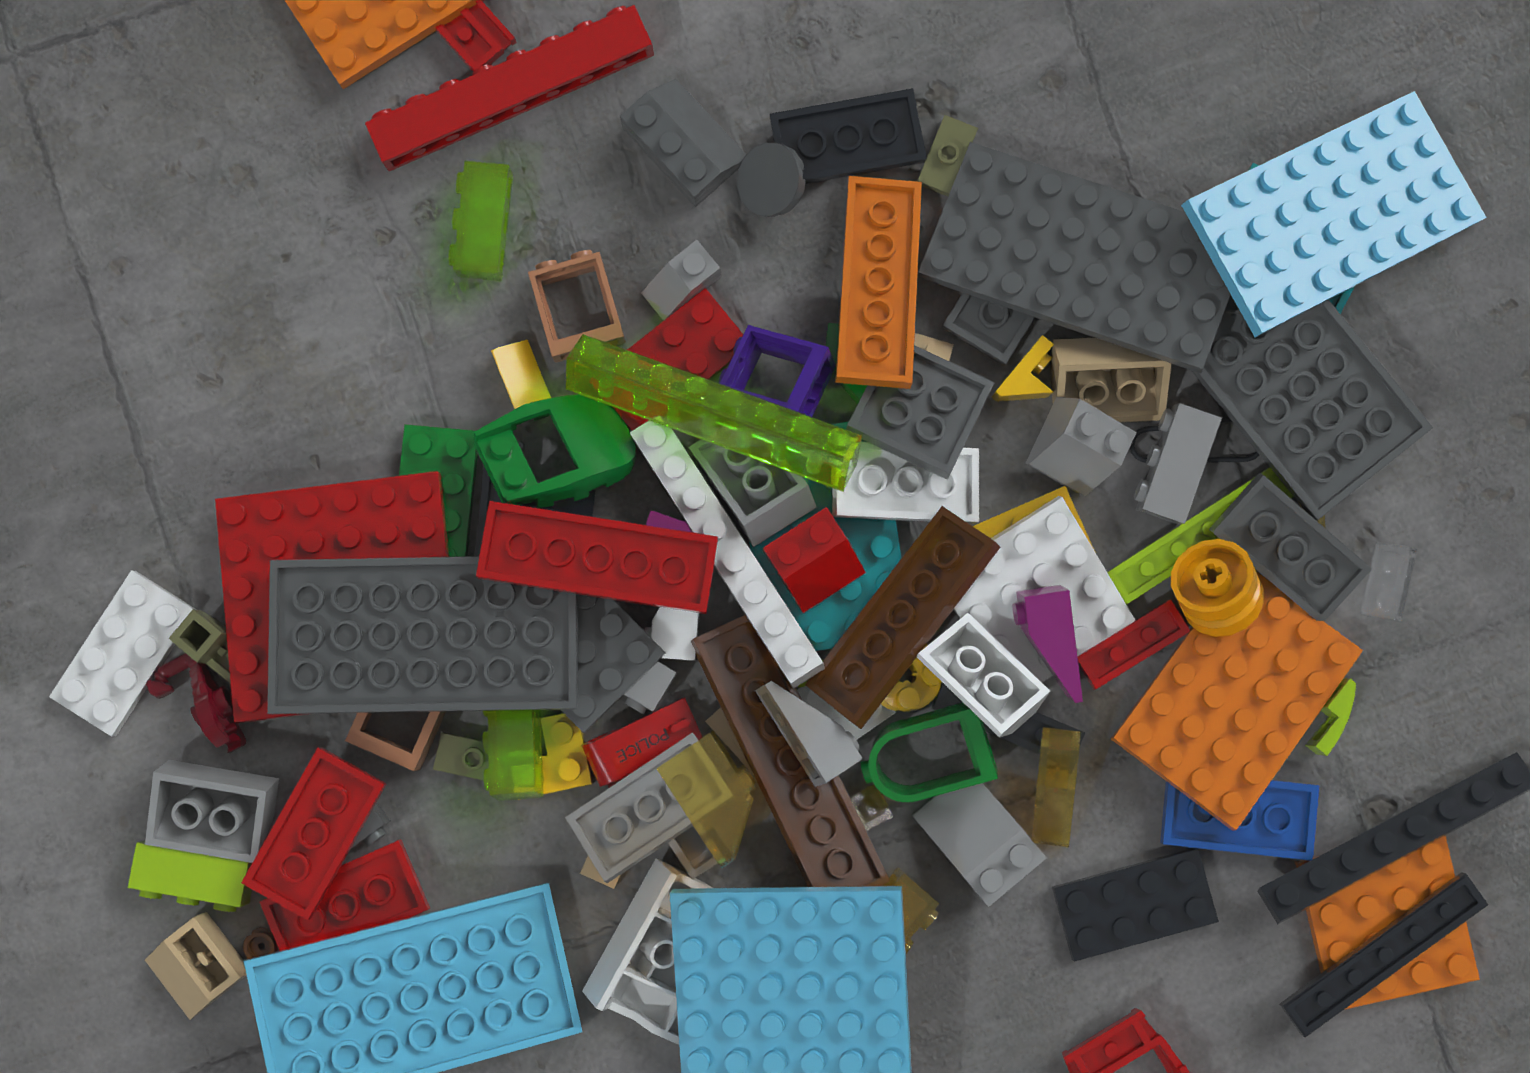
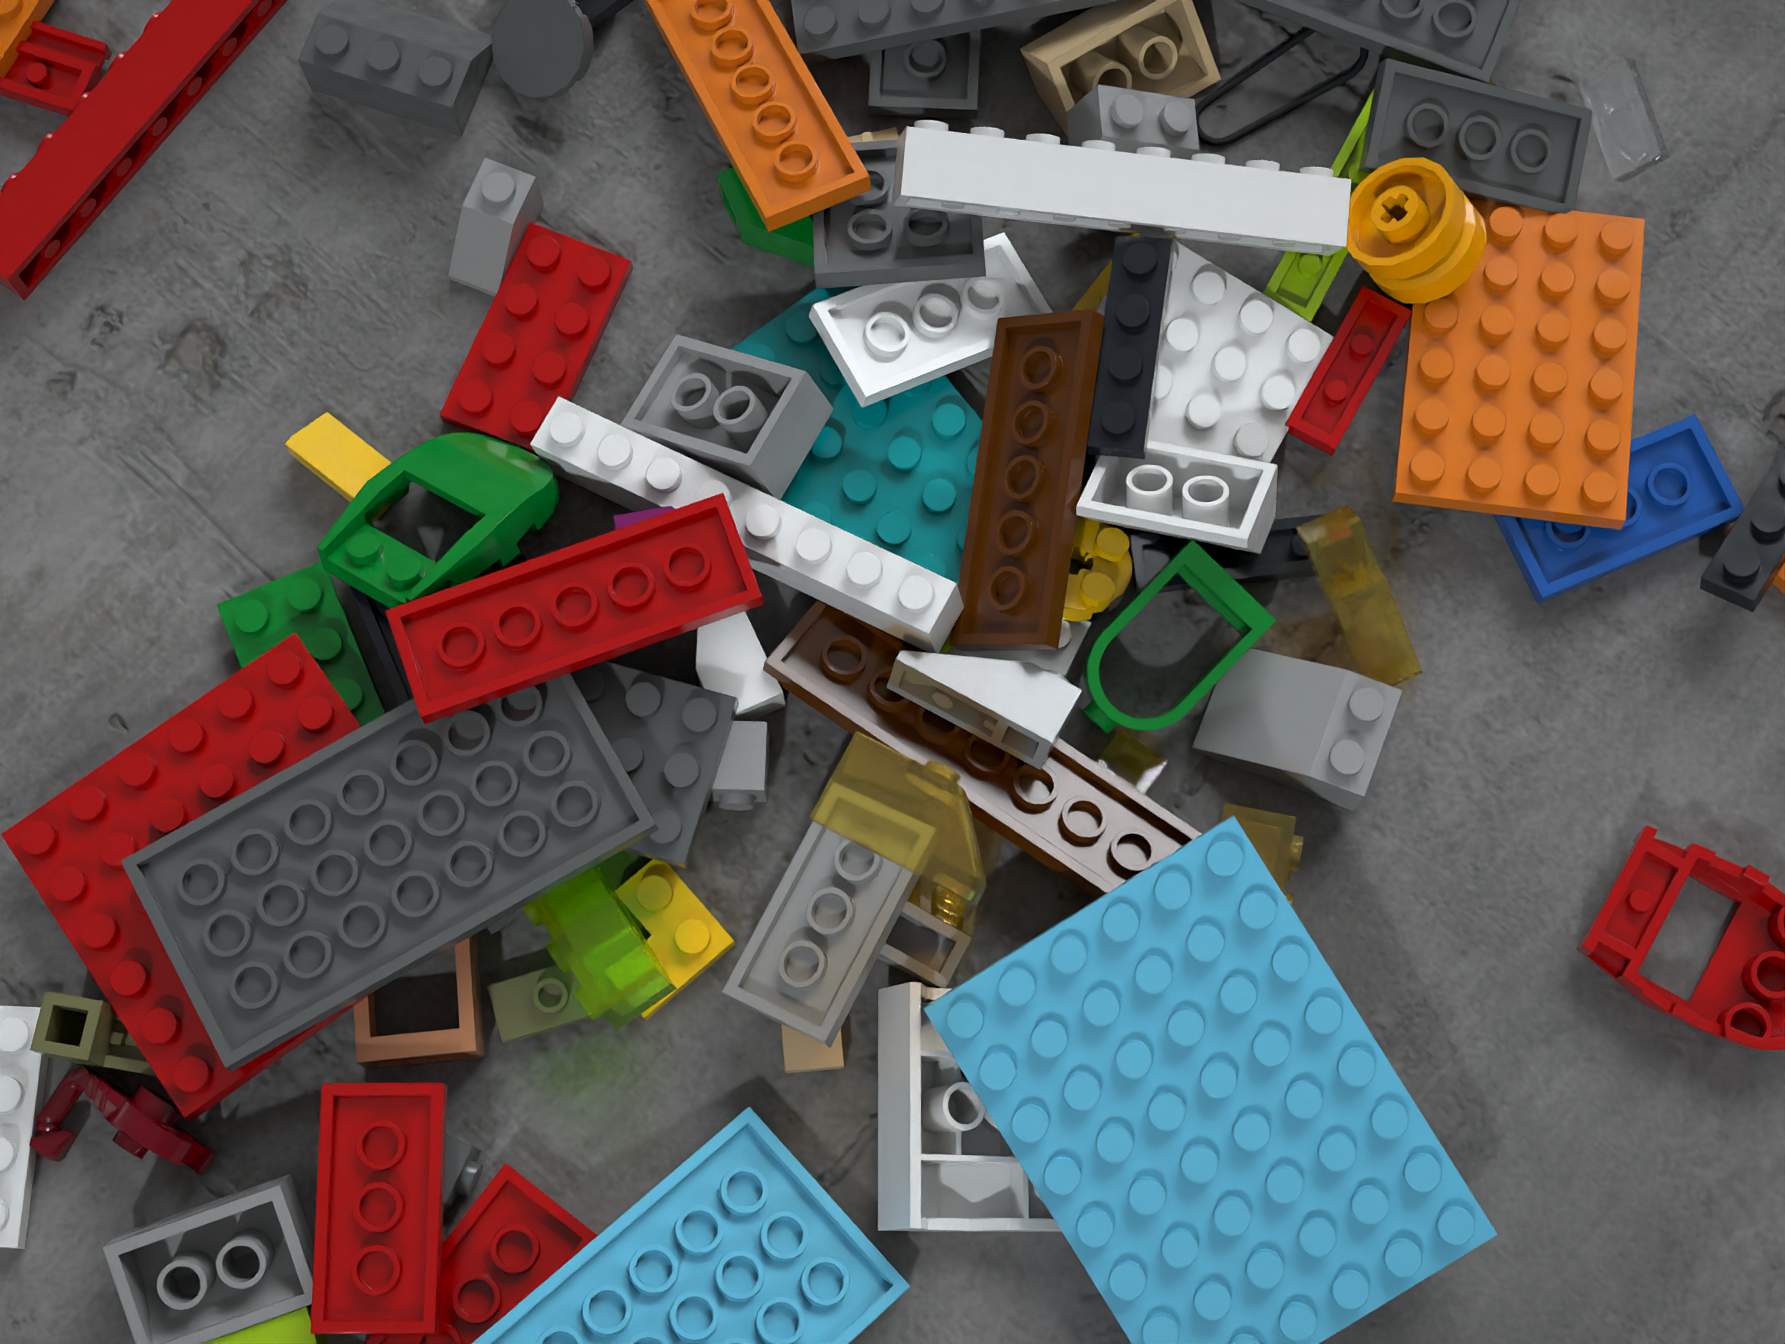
camera: 25 degrees left, 10 degrees down
(481, 220) = (183, 291): clear neon green brick -> none
(551, 272) = (408, 367): nougat window -> none
(632, 746) = (759, 854): red door -> none
(713, 412) = (626, 350): clear neon green brick -> none
(812, 380) = (707, 222): dark purple window -> none
(814, 560) = (868, 474): red slope -> none
(1007, 570) = (1130, 347): none -> black plate
(1021, 382) = (1010, 101): yellow slope -> none
(1049, 626) = (1233, 398): magenta slope -> none
(1055, 473) = (1120, 190): none -> white brick
(1135, 904) = (1553, 700): black plate -> none
(1176, 463) = (1266, 98): light grey brick -> none
(1338, 712) = (1662, 315): lime slope -> none

